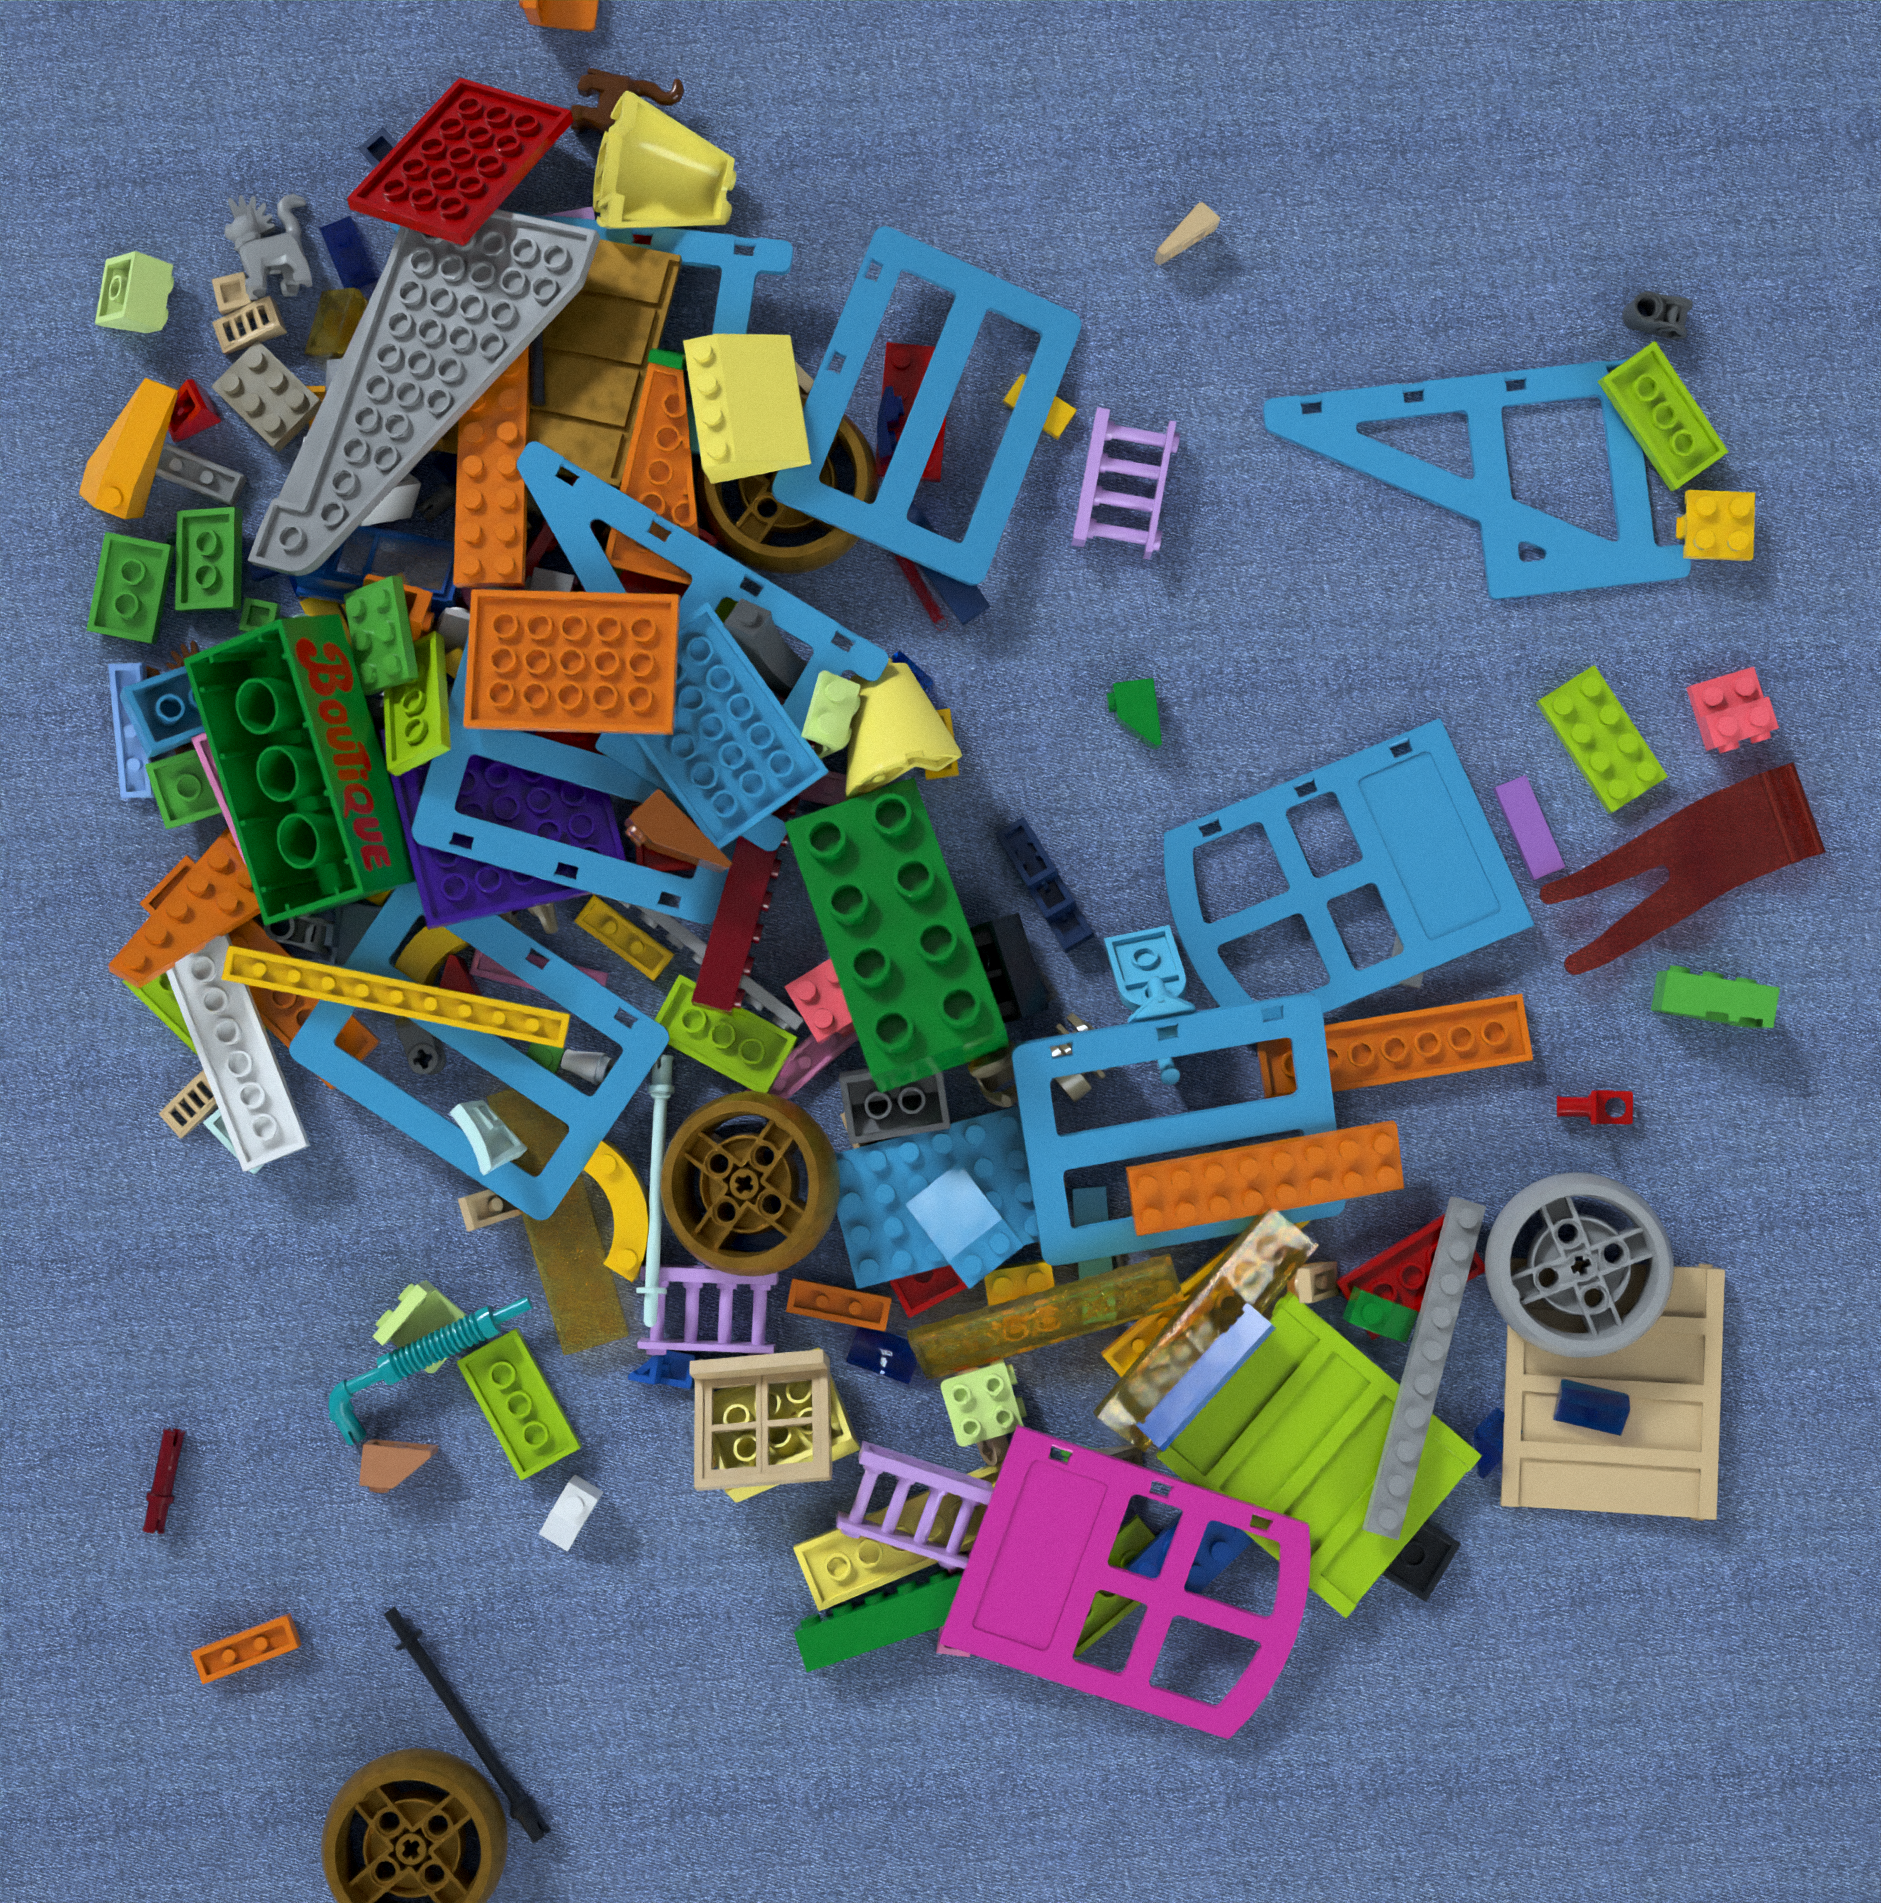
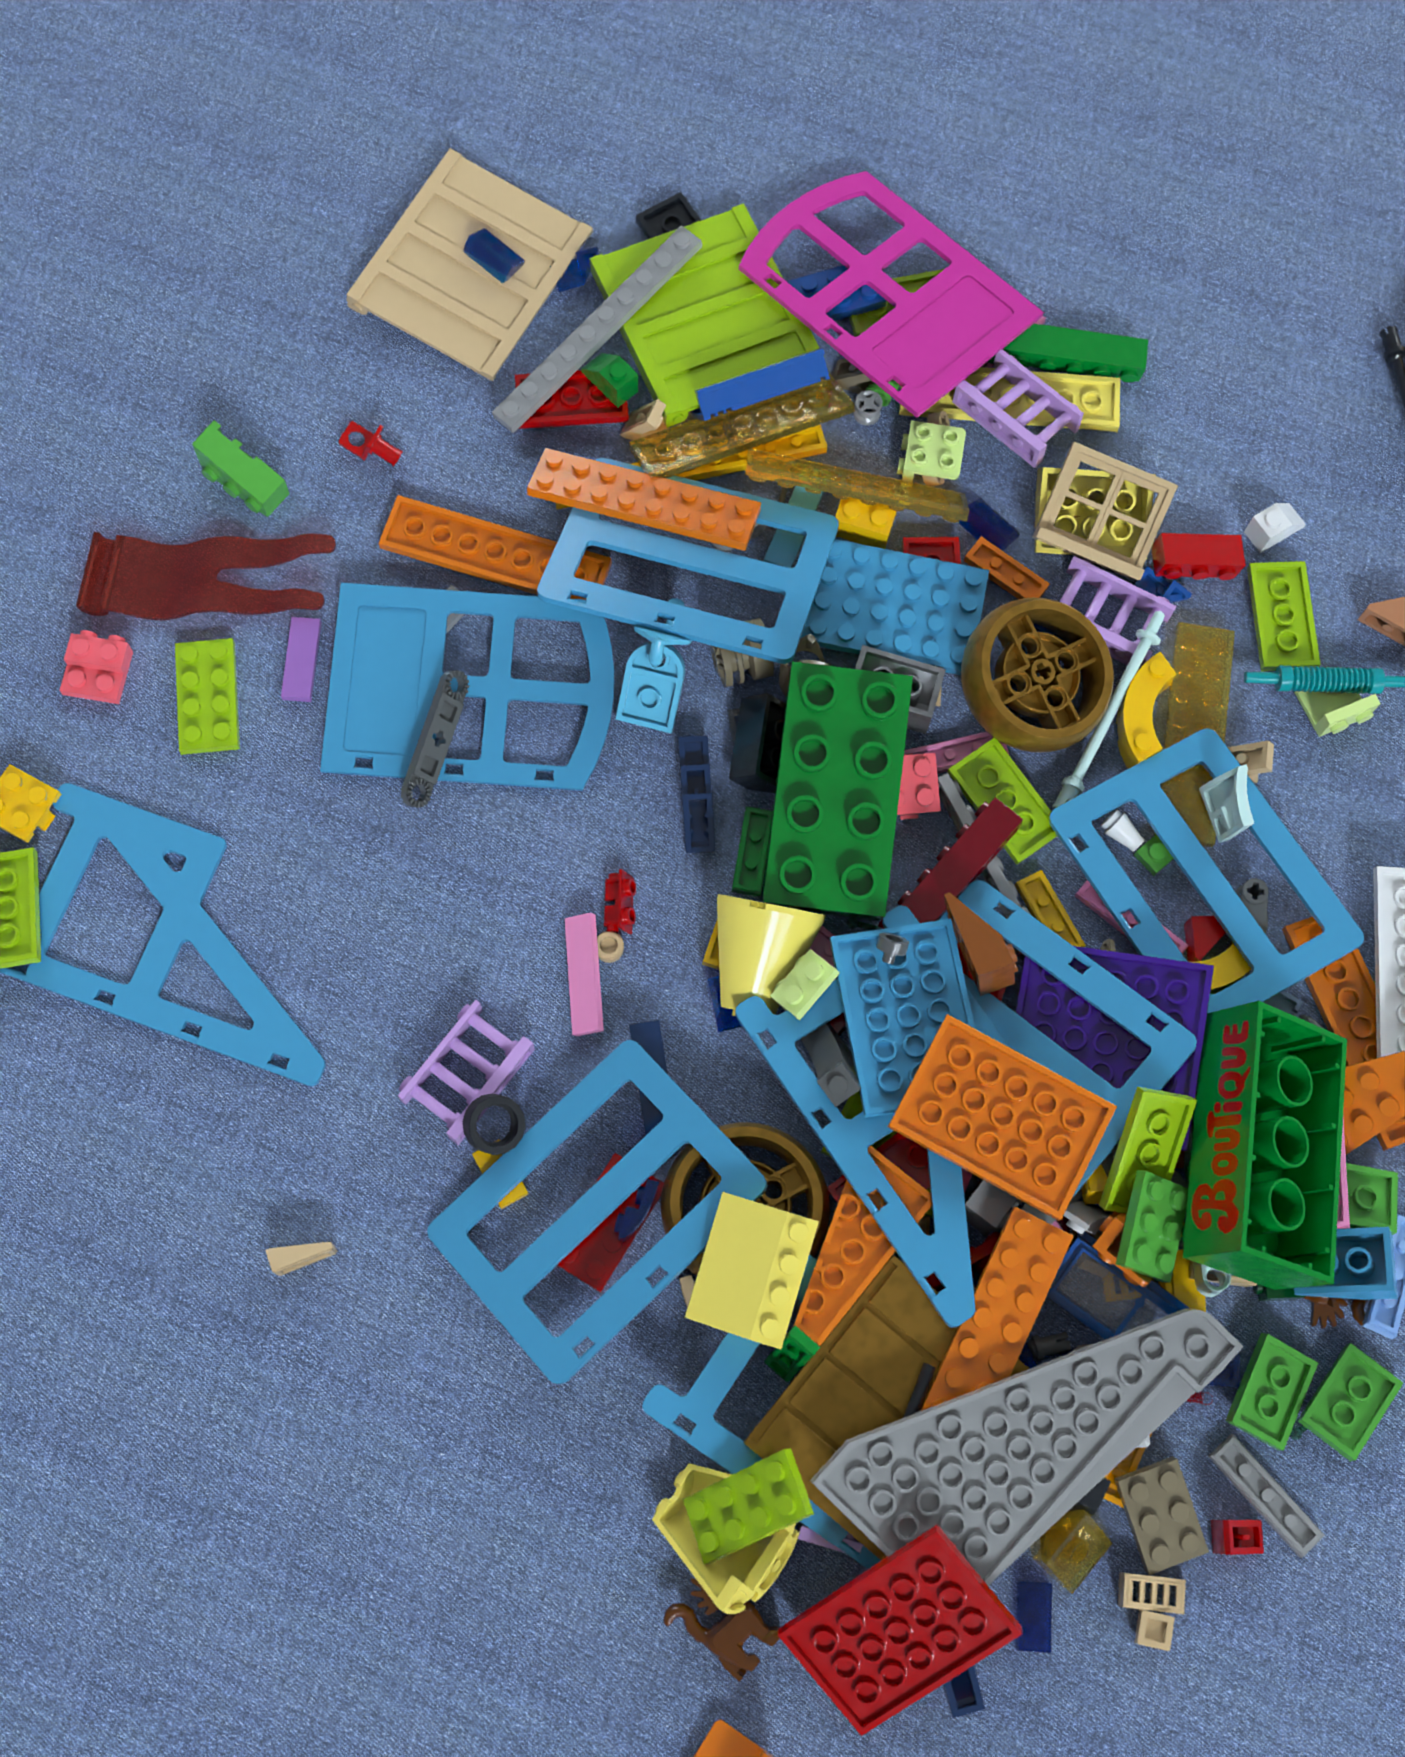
camera: 160 degrees left, 15 degrees down
(127, 458) = (1311, 1519): light orange wedge -> none
(135, 293) = (1245, 1674): yellowish green slope -> none
(257, 614) = (1246, 1321): bright green plate -> none
(272, 254) = (1107, 1646): light grey animal -> none
(396, 996) = (1261, 938): yellow plate -> none
(639, 1425) = (1198, 556): none -> red brick
(648, 197) = (748, 1506): none -> lime plate
(760, 786) = (892, 946): none -> dark grey tile
(930, 601) = (679, 1061): red piece -> none
(958, 852) = (752, 852): none -> green tile
(964, 1225) = (887, 567): slope -> none
(1048, 428) = (515, 1132): none -> black tyre
(1051, 681) = (610, 946): none -> tan tile
(1055, 717) = (620, 889): none -> red hinge
(1061, 638) = (584, 974): none -> bright pink tile
(1082, 1434) = (867, 400): none -> light grey wheel
(1136, 709) = (553, 889): green slope -> none
(1343, 823) = (428, 755): none -> dark grey piece
(1566, 1293) = (448, 293): light grey wheel -> none

